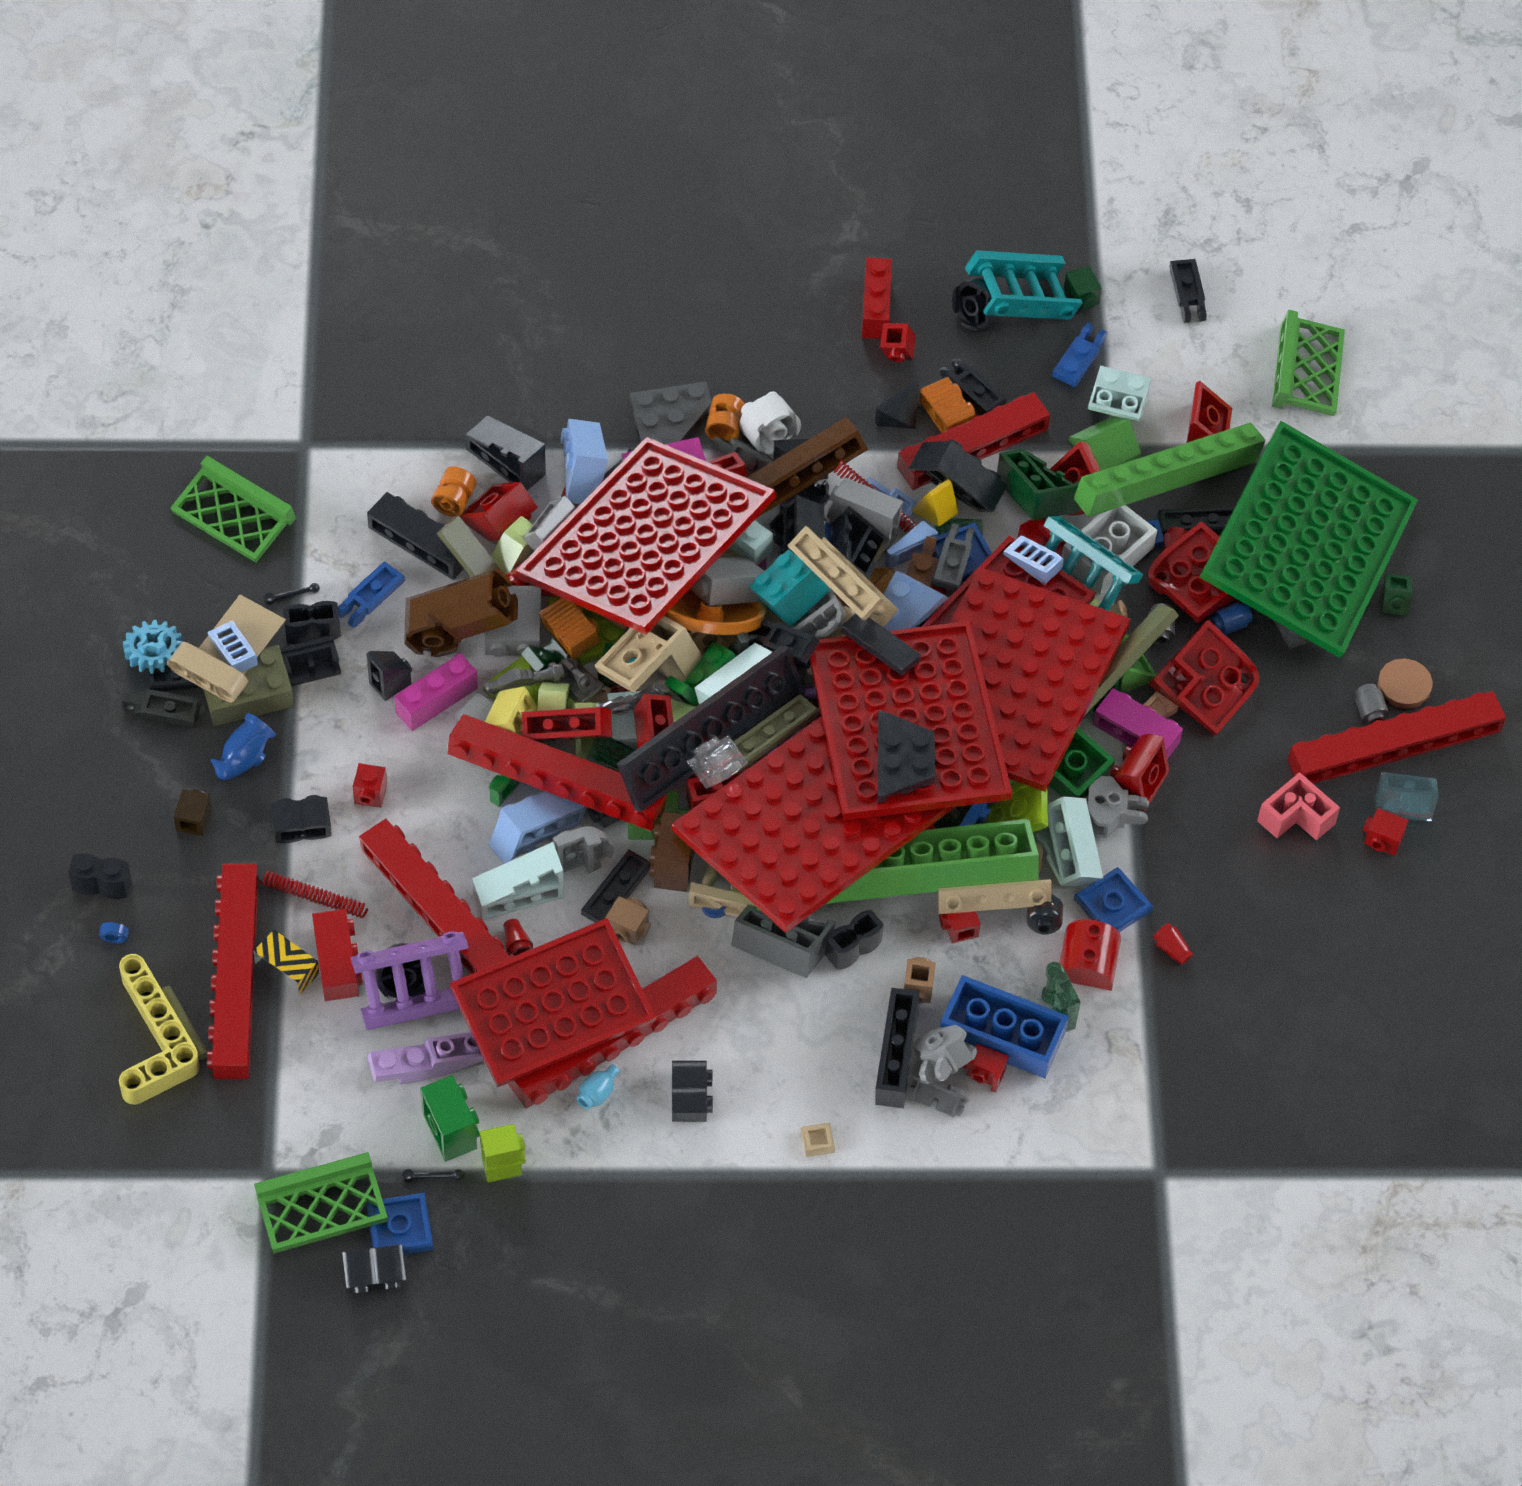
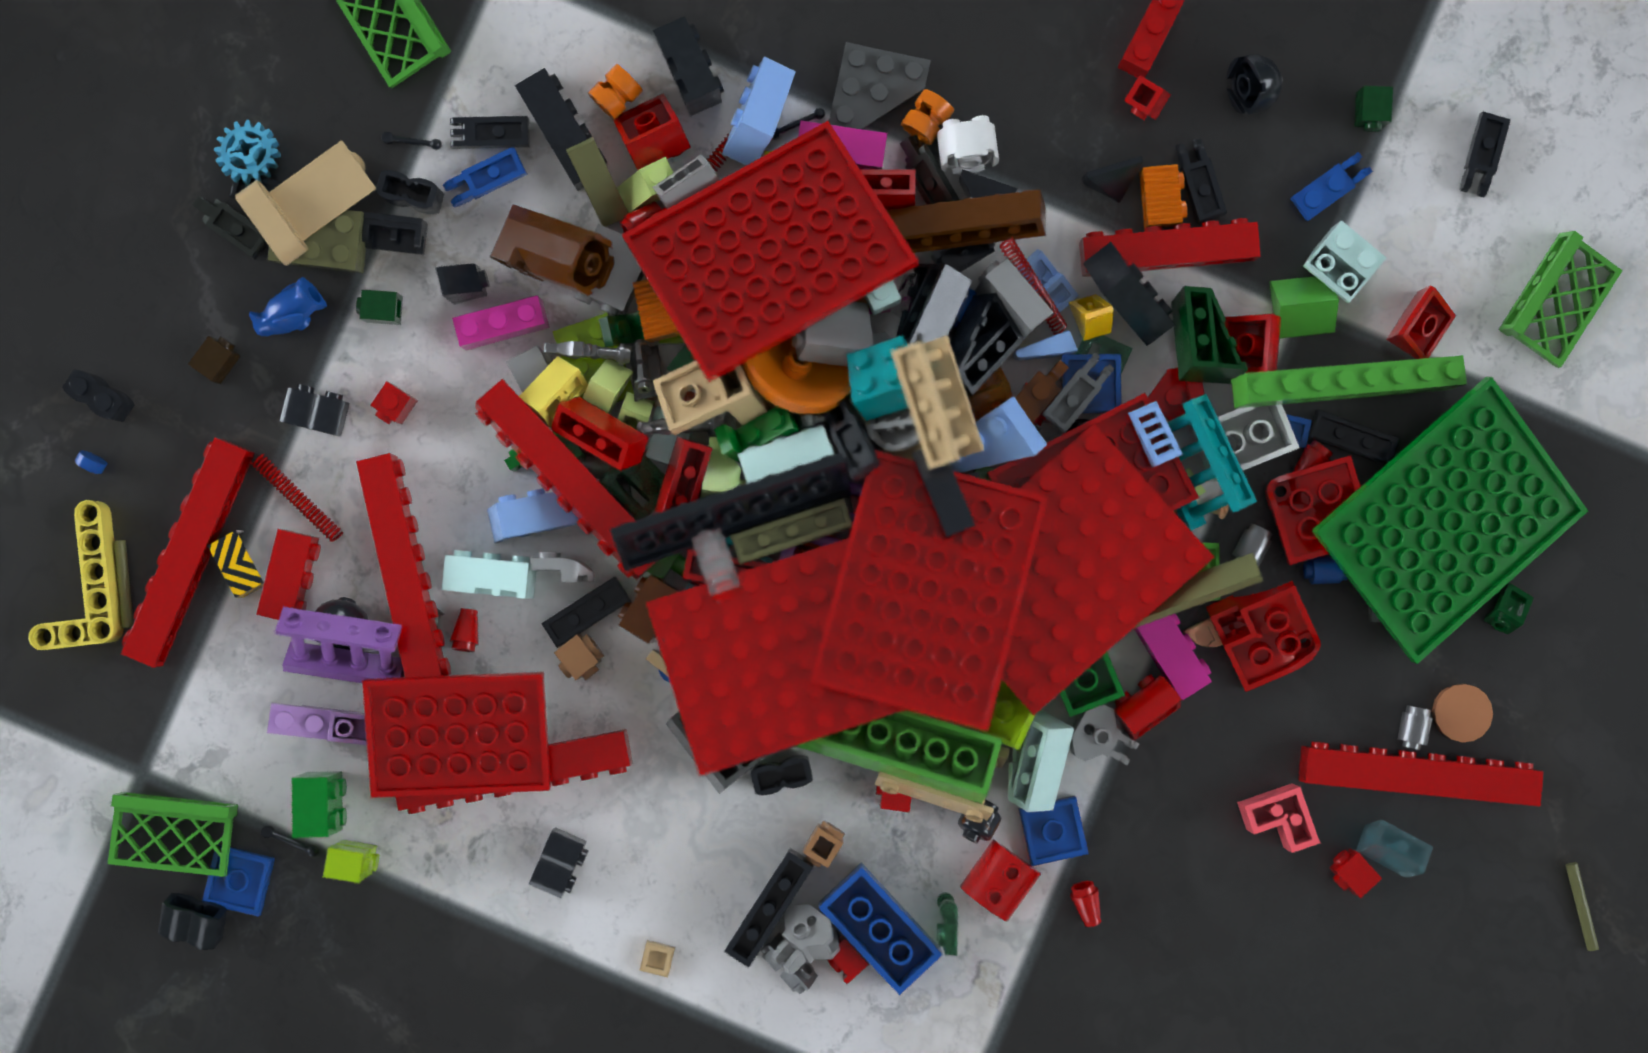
camera: 25 degrees right, 30 degrees up
(240, 663) = (320, 221): light blue slope -> none
(323, 719) = (380, 307): none -> dark green brick
(358, 560) = (490, 132): none -> black hinge
(597, 1087) = (475, 821): medium azure plant -> none
(904, 756) = (899, 642): black wing -> none
(1029, 267) = (1325, 63): teal fence -> none

